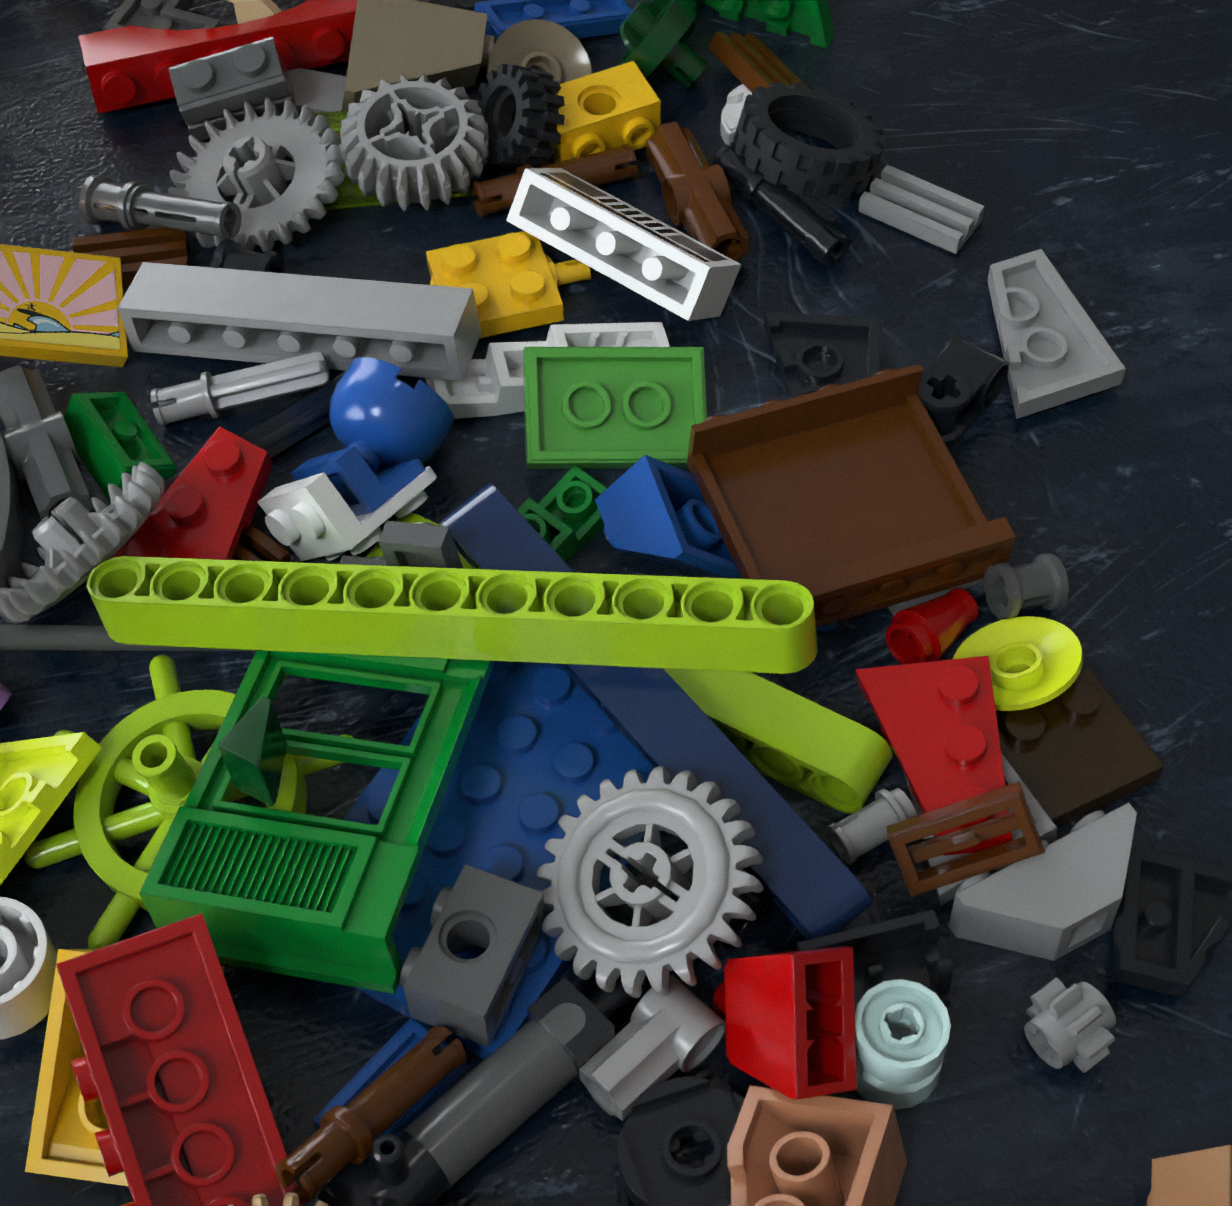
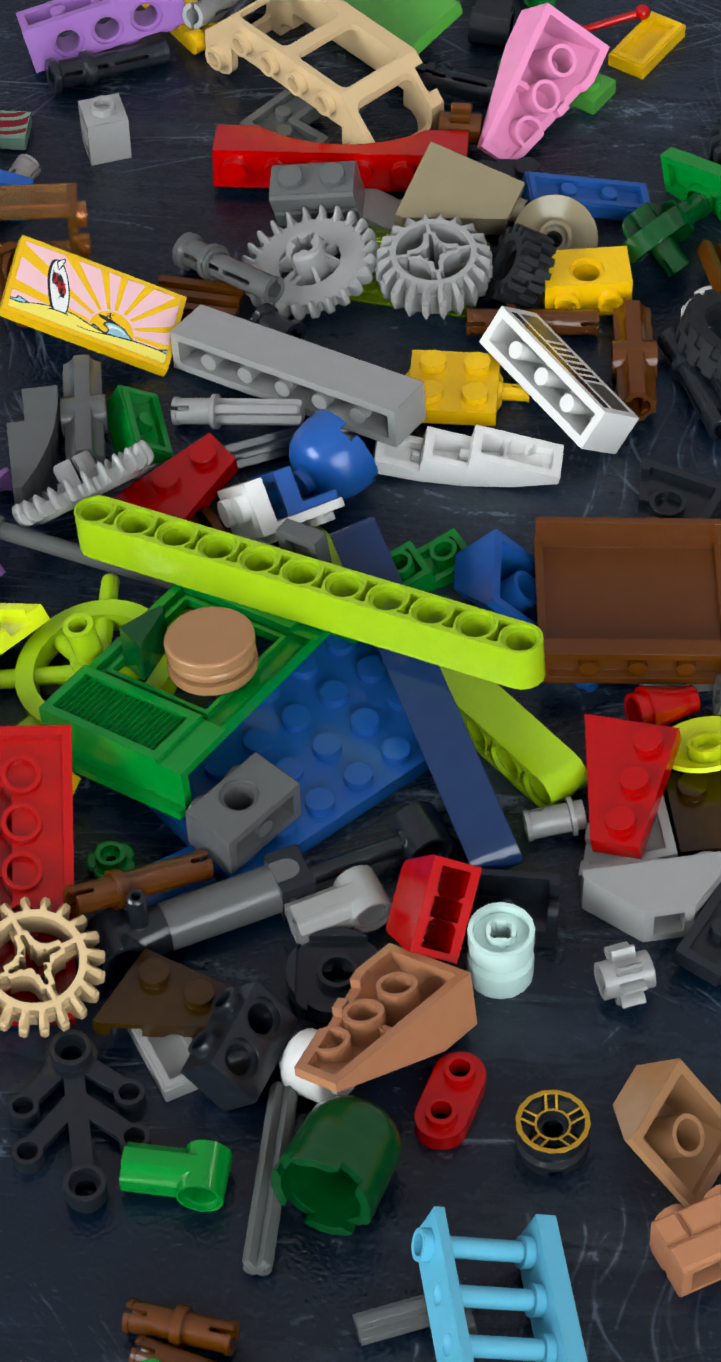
camera: 20 degrees right, 5 degrees down
(313, 1095) = (107, 850): none -> green plate
(354, 739) = (211, 651): none -> medium nougat head
(611, 405) = (494, 488): bright green tile -> none
(682, 927) = (369, 829): light grey gear -> none
(956, 815) = (644, 833): reddish brown tile -> none

